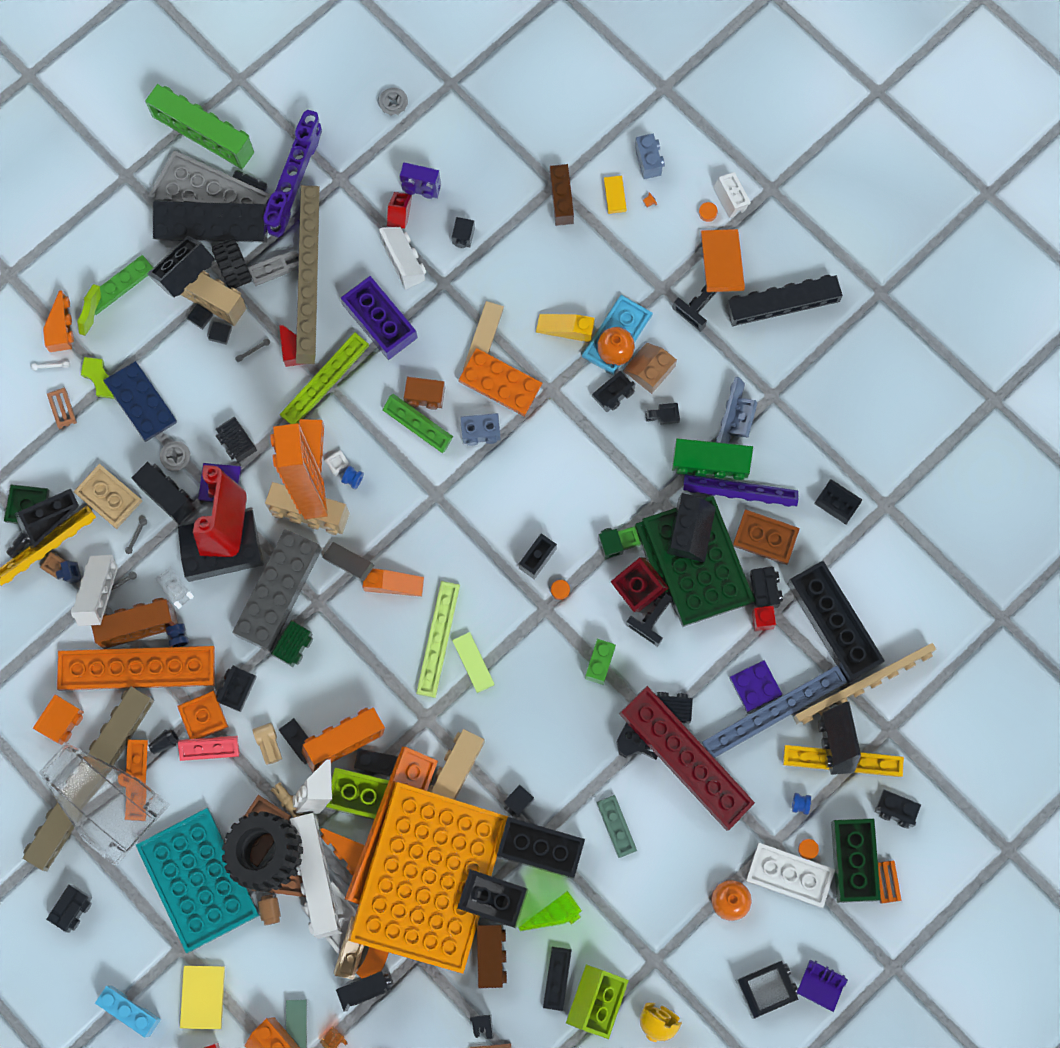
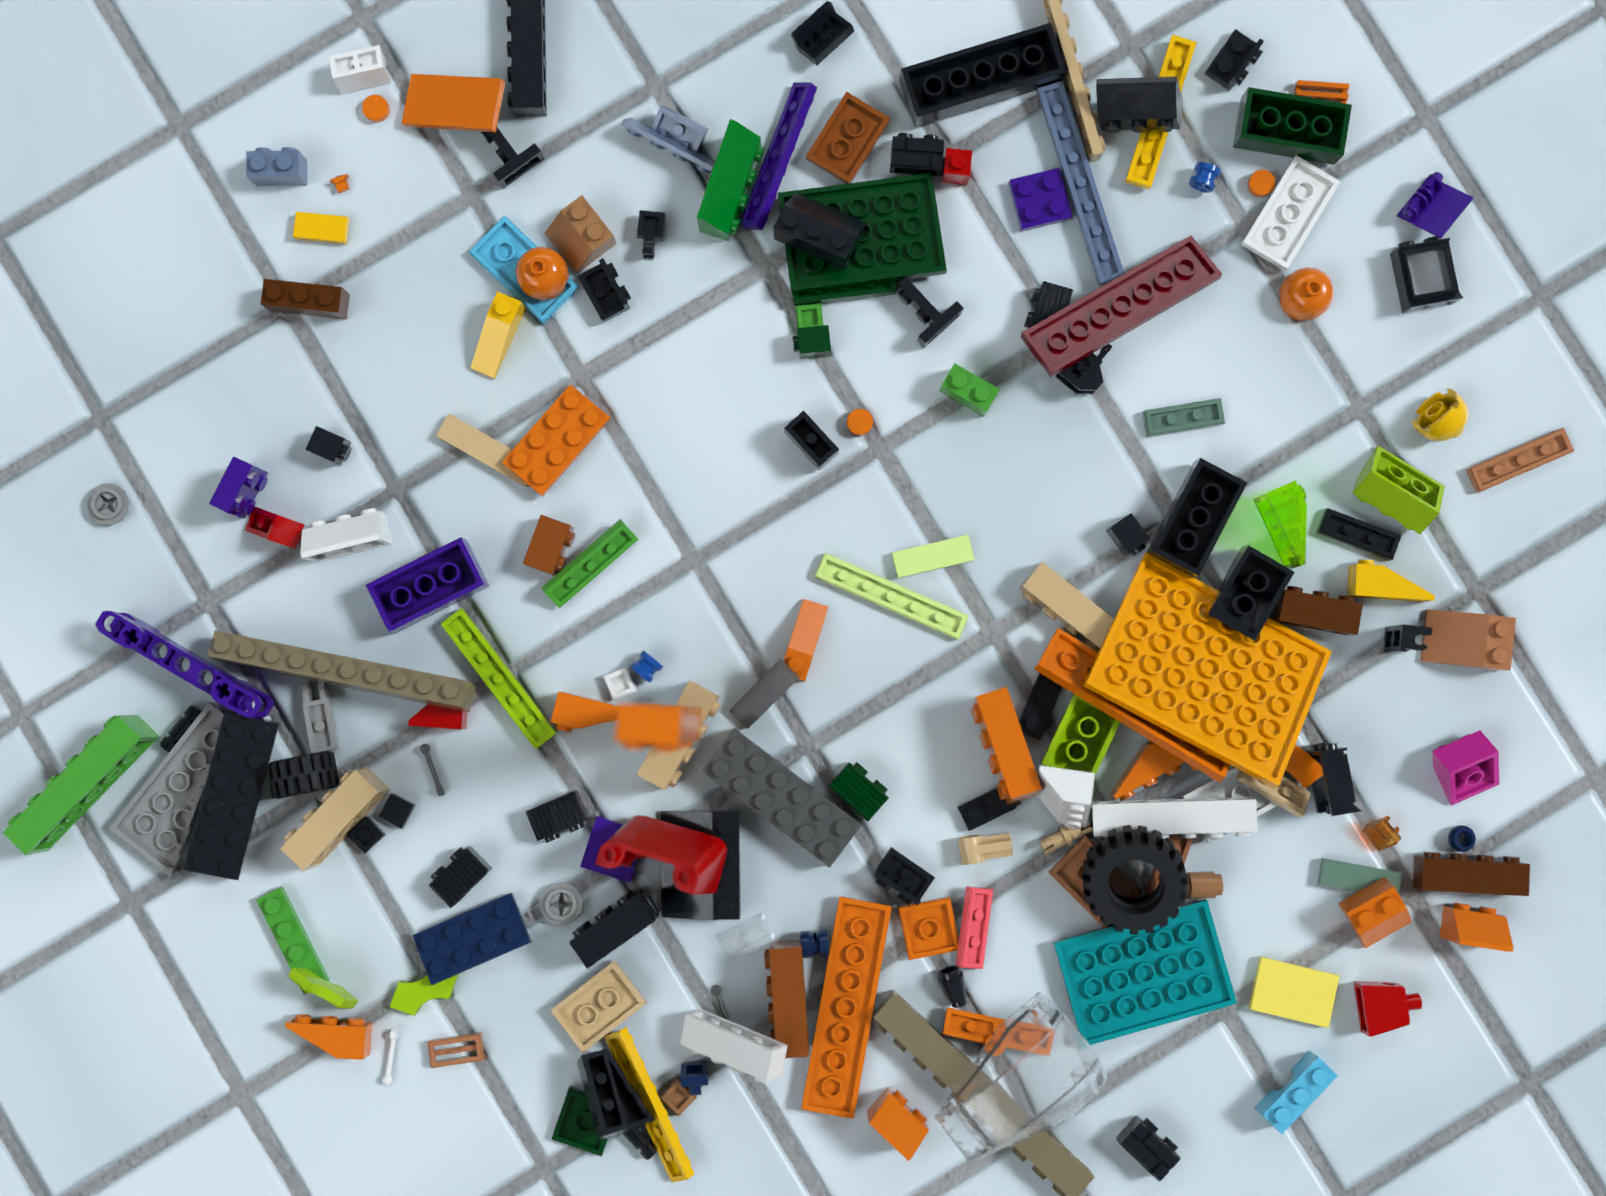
camera: 80 degrees left, 10 degrees up
(143, 522) = (644, 964): dark grey hinge -> none
(181, 266) = (294, 845): black slope -> none
(181, 383) = (460, 876): none -> black brick
(480, 429) = (617, 480): sand blue brick -> none
(522, 998) = (1380, 582): none -> yellow slope
(639, 584) = (880, 314): dark red brick -> none

